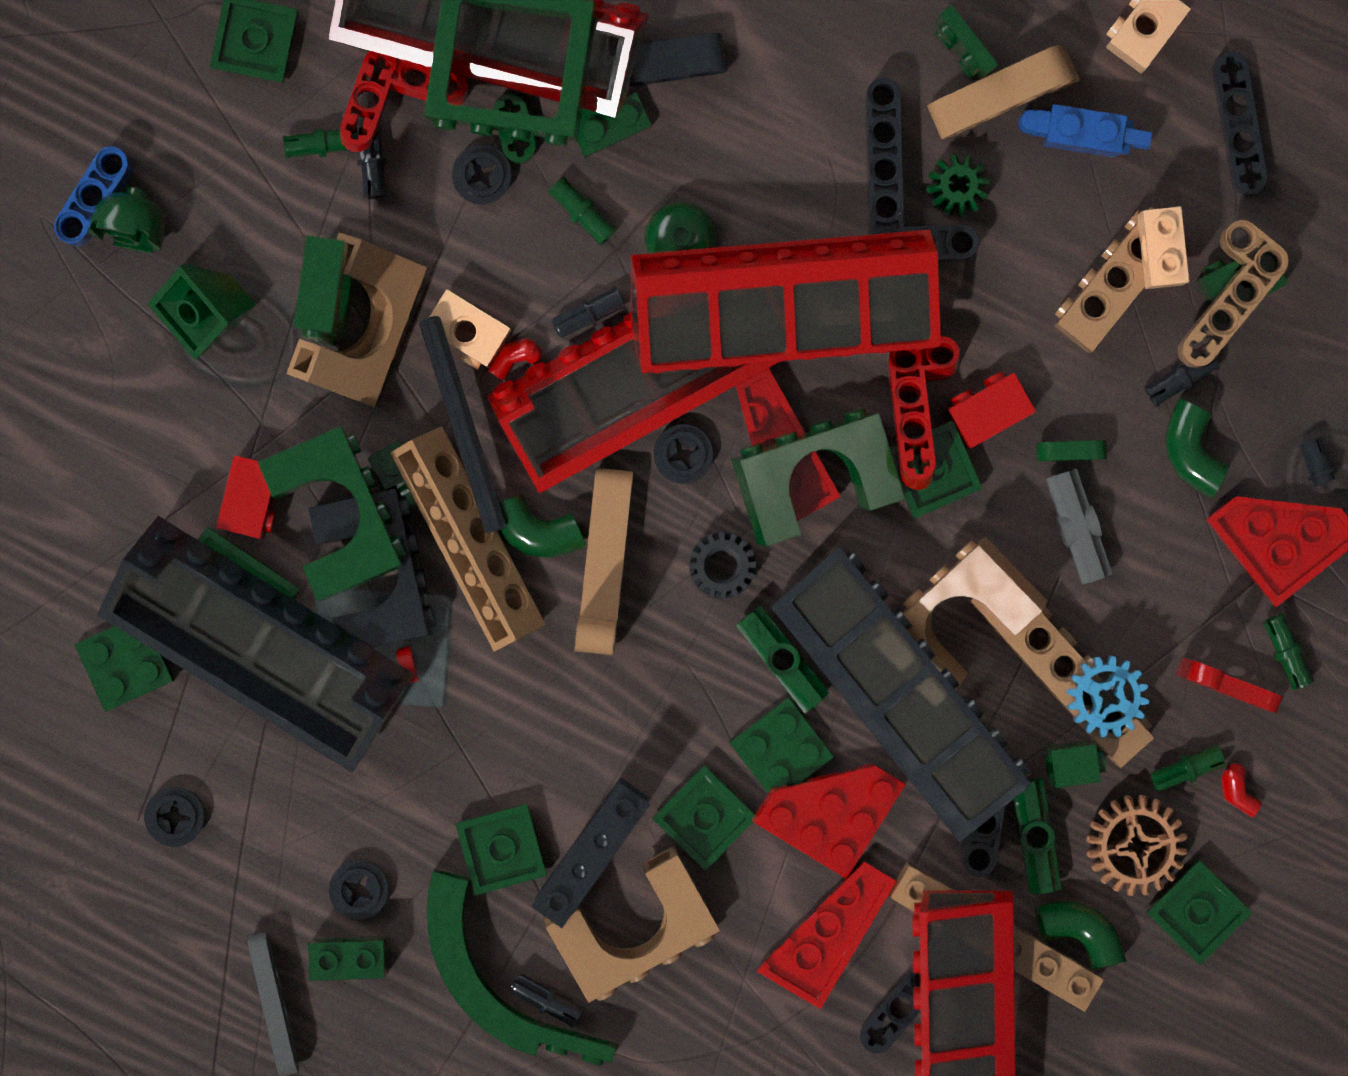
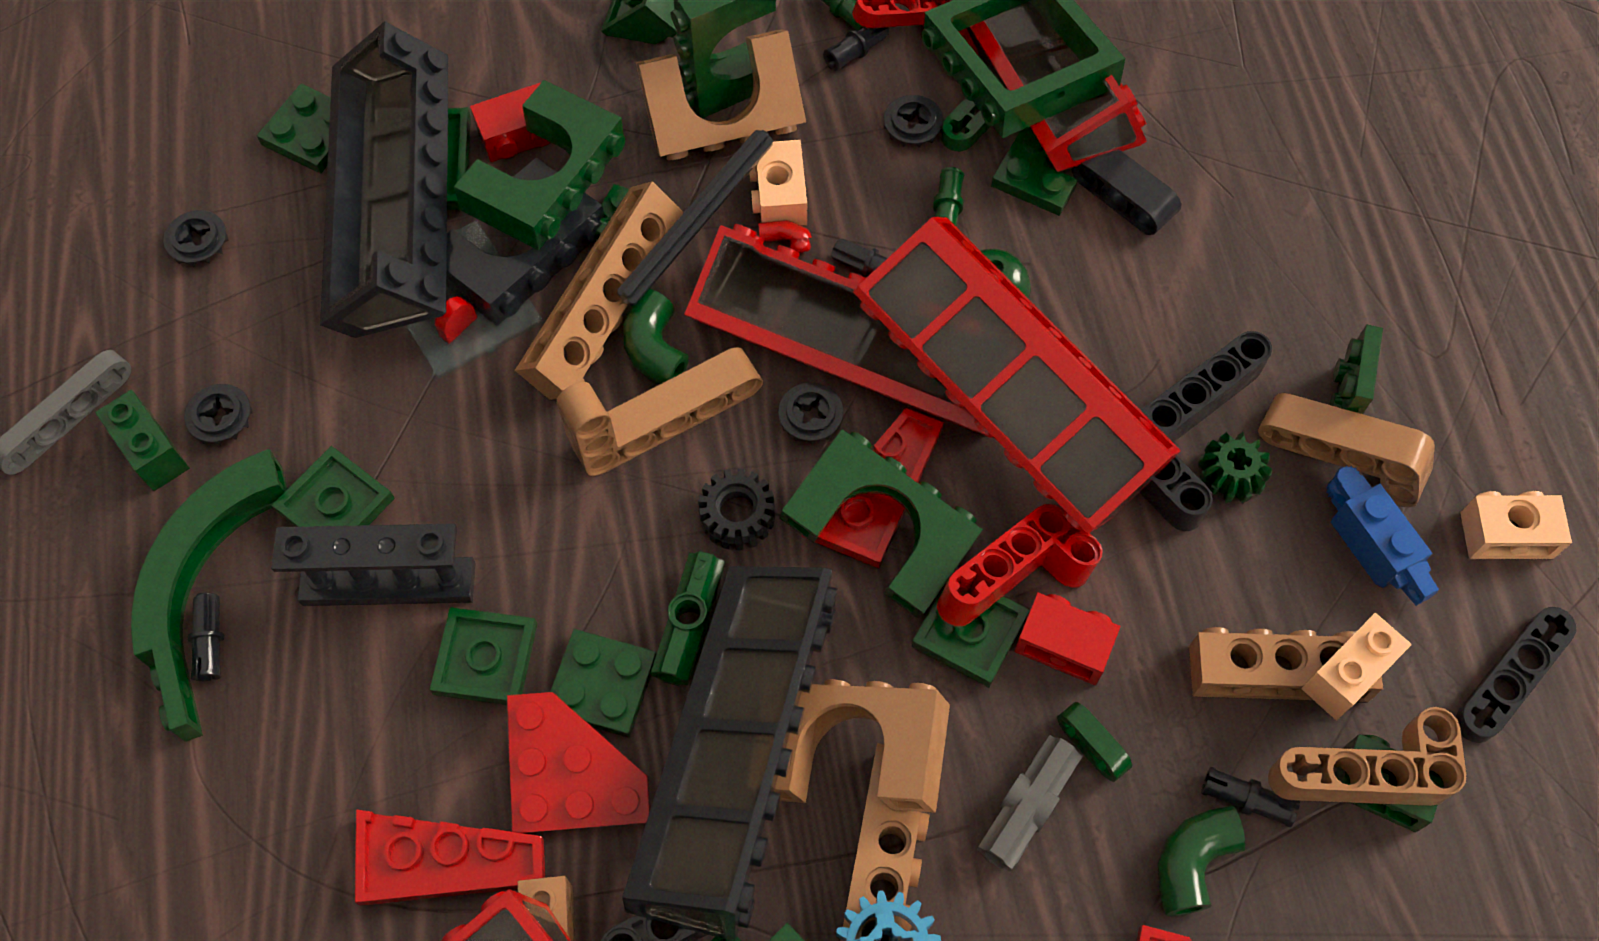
camera: 55 degrees right, 25 degrees down
(684, 923) = (269, 657): medium nougat arch -> none

